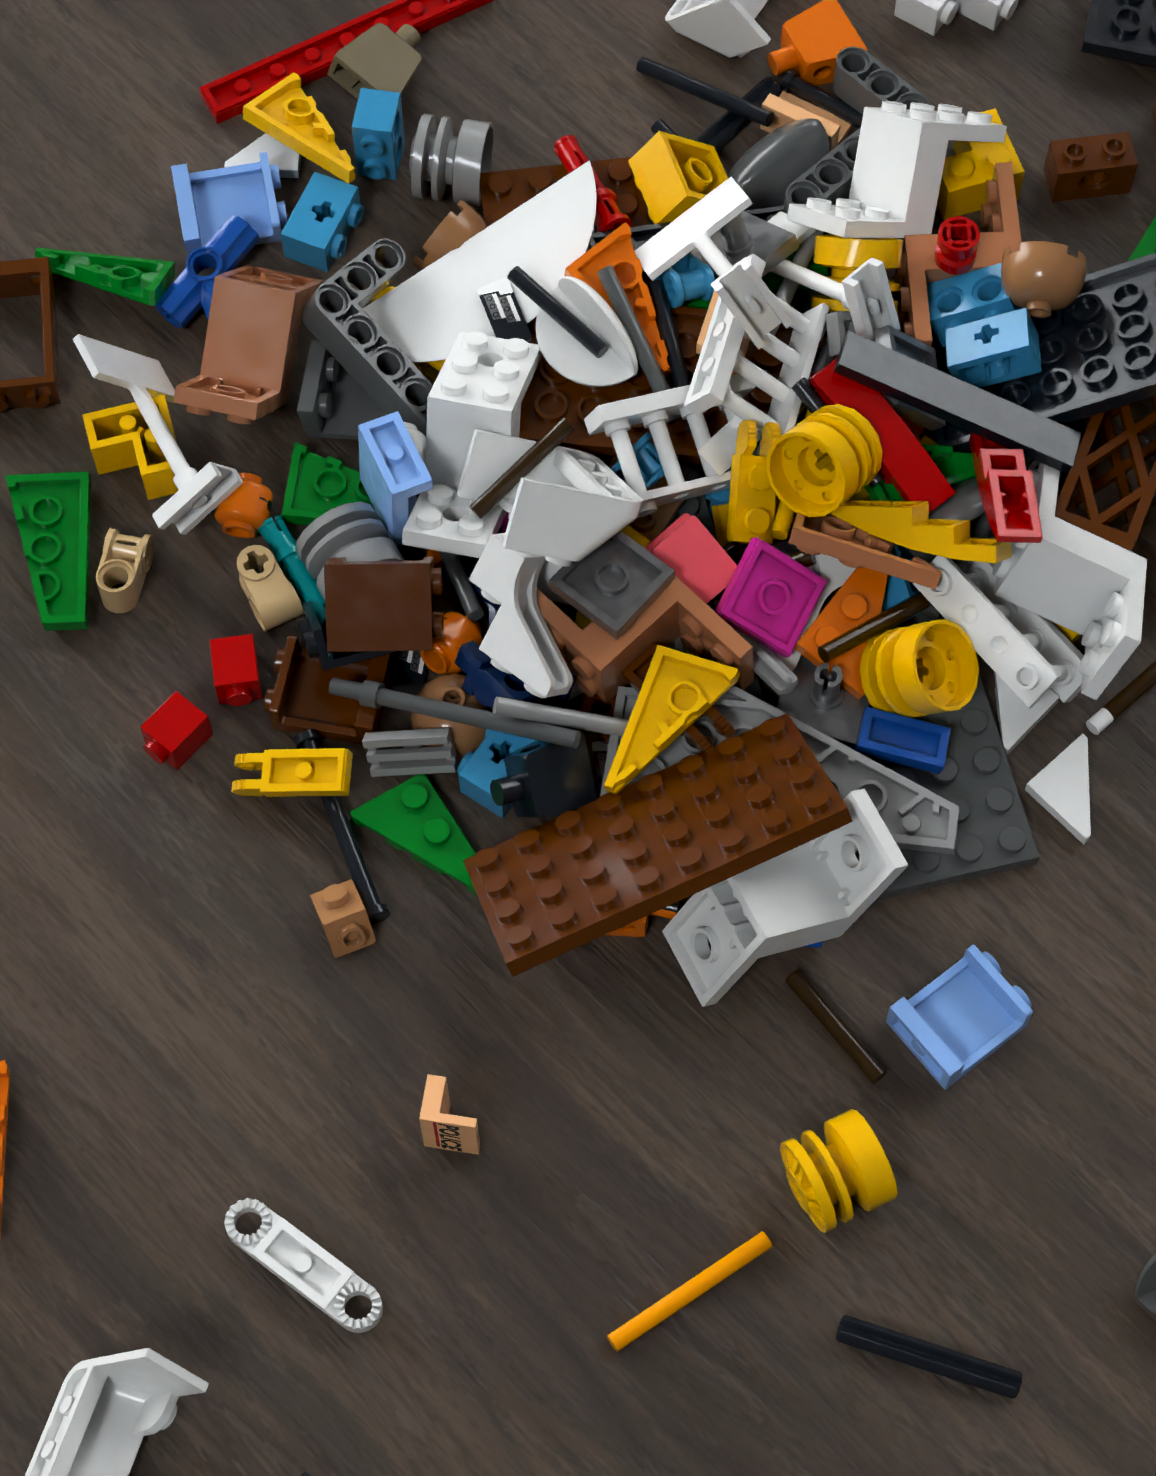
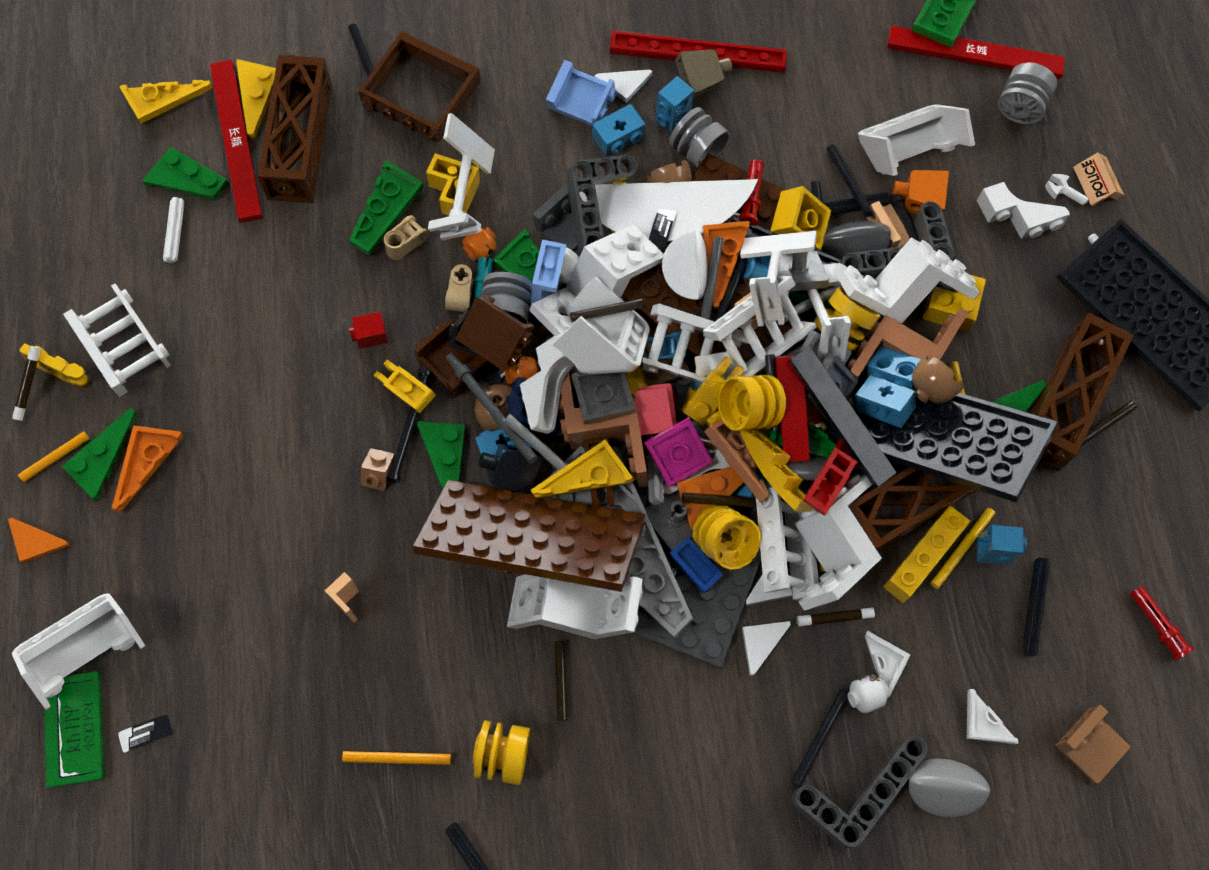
camera: 30 degrees right, 5 degrees up
(126, 276) = (507, 98): green wing -> none
(192, 291) = (542, 133): blue piece -> none
(236, 670) = (417, 319): red brick -> none
(249, 344) = (535, 167): nougat bracket -> none
(295, 121) = (641, 72): yellow wing -> none
(303, 1265) = (236, 619): white plate -> none
(412, 758) = (464, 412): light grey tile -> none
(558, 312) = (683, 244): black bar -> none
(956, 245) = (902, 342): red wheel -> none
(961, 1017) = (622, 719): light blue panel -> none
(1090, 166) = (1014, 339): reddish brown brick -> none

